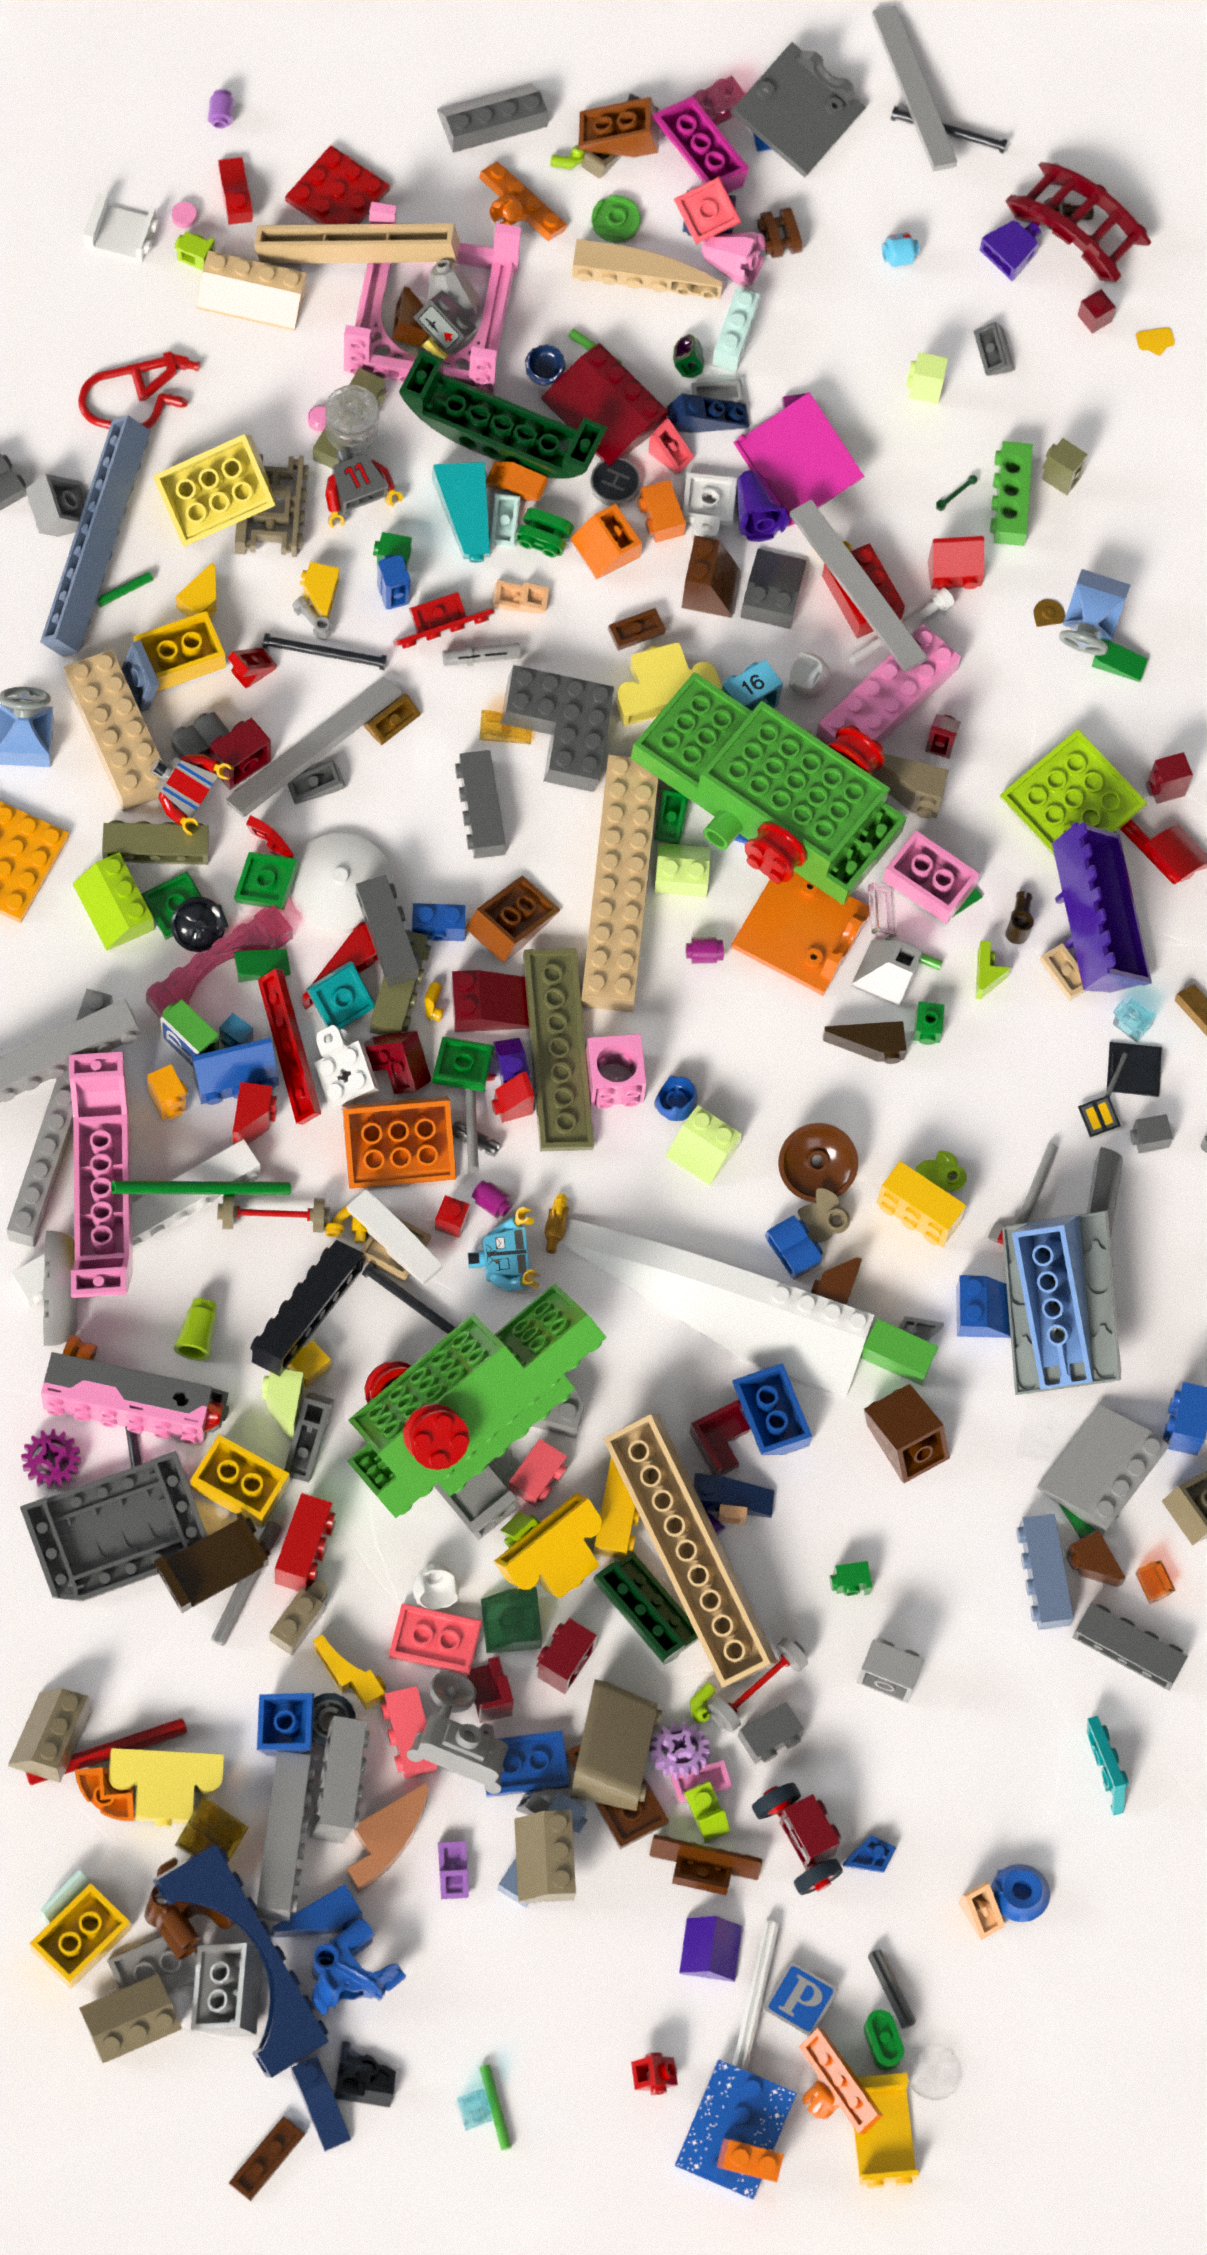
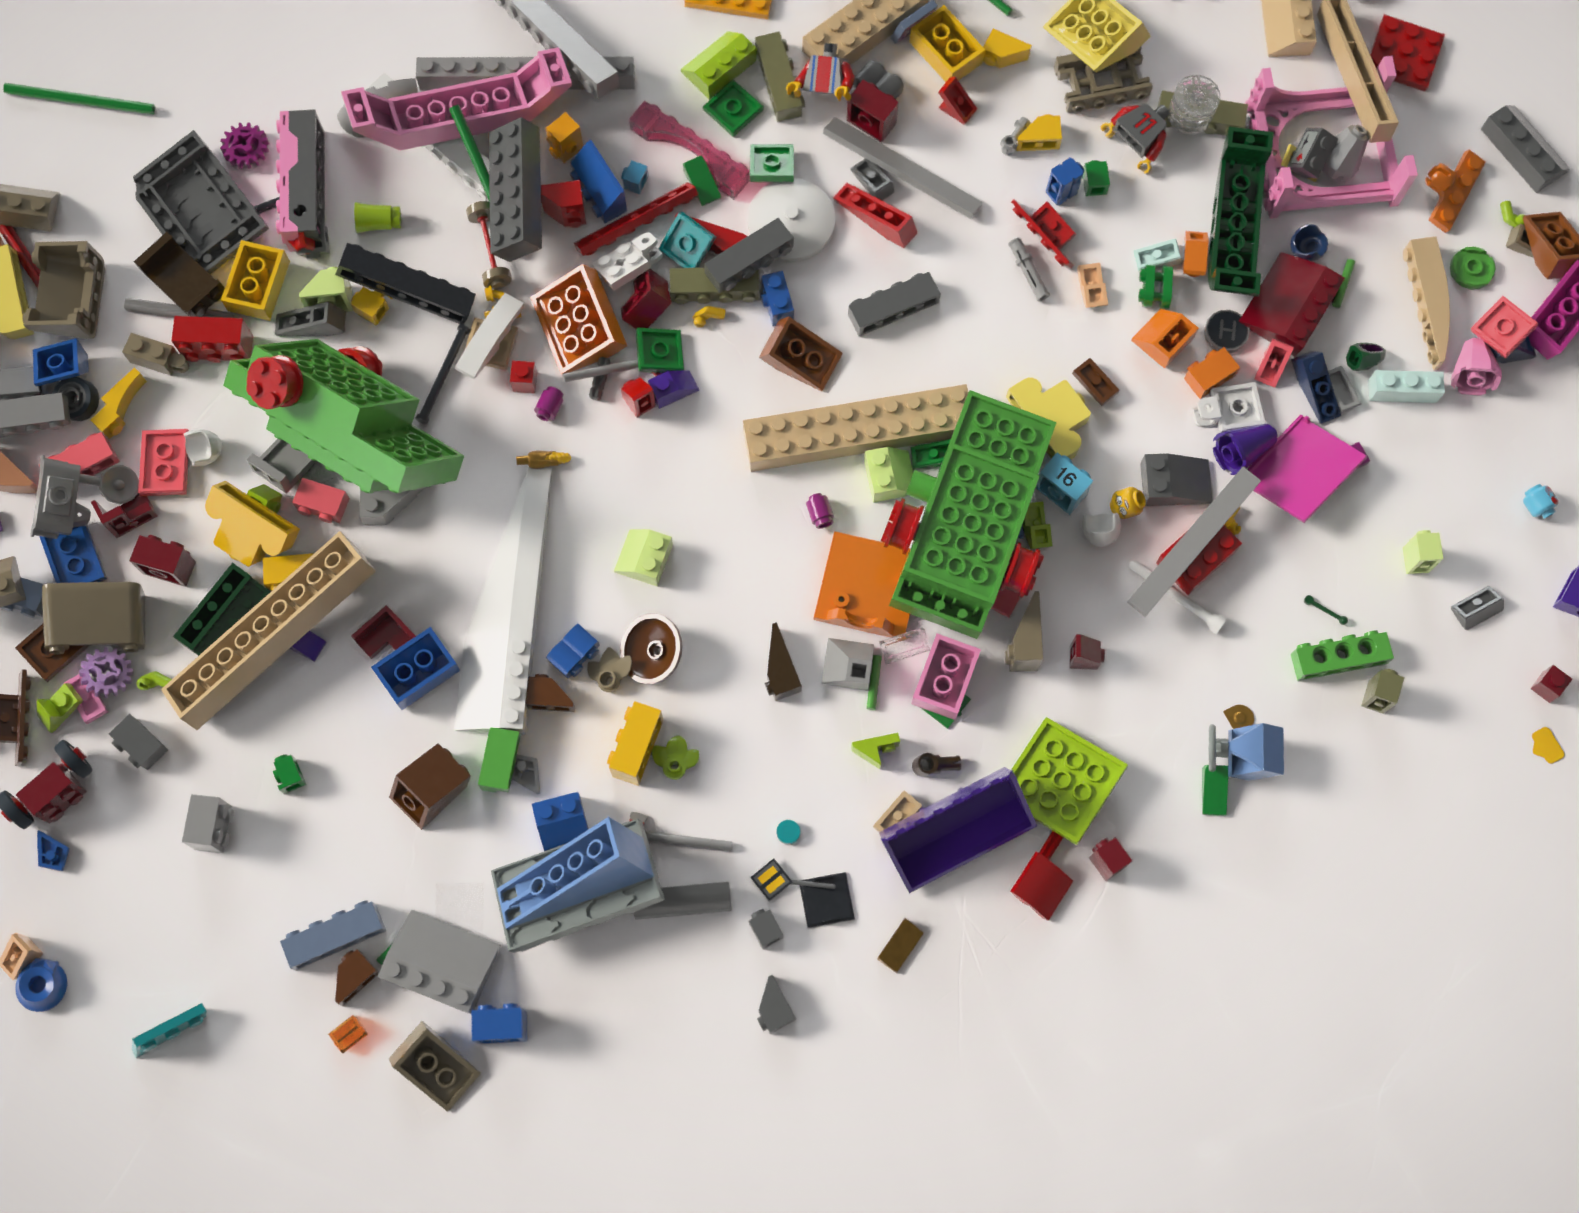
camera: 80 degrees right, 5 degrees up
(79, 1349) = (337, 141): orange wheel -> none
(187, 1032) = (618, 139): bright green piece -> none
(187, 1700) = (67, 289): none -> dark tan windscreen
(198, 924) = (716, 122): black piece -> none
(231, 1154) = (515, 190): none -> dark grey brick
(275, 842) = (809, 152): red slope -> none
(329, 652) = (983, 110): black bar -> none
(365, 790) = (877, 214): none -> red slope
(392, 719) = (948, 219): pearl gold slope -> none
(405, 327) = (1297, 128): reddish brown slope -> none
(464, 501) = (1155, 219): teal slope -> none
(488, 1001) = (721, 357): dark red slope -> none
(494, 731) = (970, 304): clear yellow slope -> none
(506, 1255) = (500, 427): medium azure torso -> none
(511, 1621) = (187, 517): clear green slope -> none
(532, 1803) = (33, 570): dark grey piece -> none
(558, 1050) = (693, 419): olive plate -> none
(571, 712) = (994, 352): dark grey piece -> none
(615, 1050) = (689, 446): bright pink brick -> none
(676, 1098) = (679, 524): blue hair -> none
(711, 578) = (1160, 422): reddish brown slope -> none
(722, 1490) = (338, 657): dark blue slope -> none
(726, 1713) = (145, 700): light grey axle -> none
(732, 1514) = (322, 662): light nougat tile -> none
(774, 244) = (1515, 387): reddish brown brick -> none
(787, 640) = (1127, 502): none -> yellow head
(890, 694) = (1103, 599): bright pink brick -> none
(928, 1023) = (810, 710): green brick -> none
(956, 562) = (1252, 623): slope -> none
(1052, 1085) = (788, 832): none -> teal tile
(1130, 1646) = (281, 1026): dark grey brick -> none
(1133, 1027) = (866, 893): clear light blue brick -> none

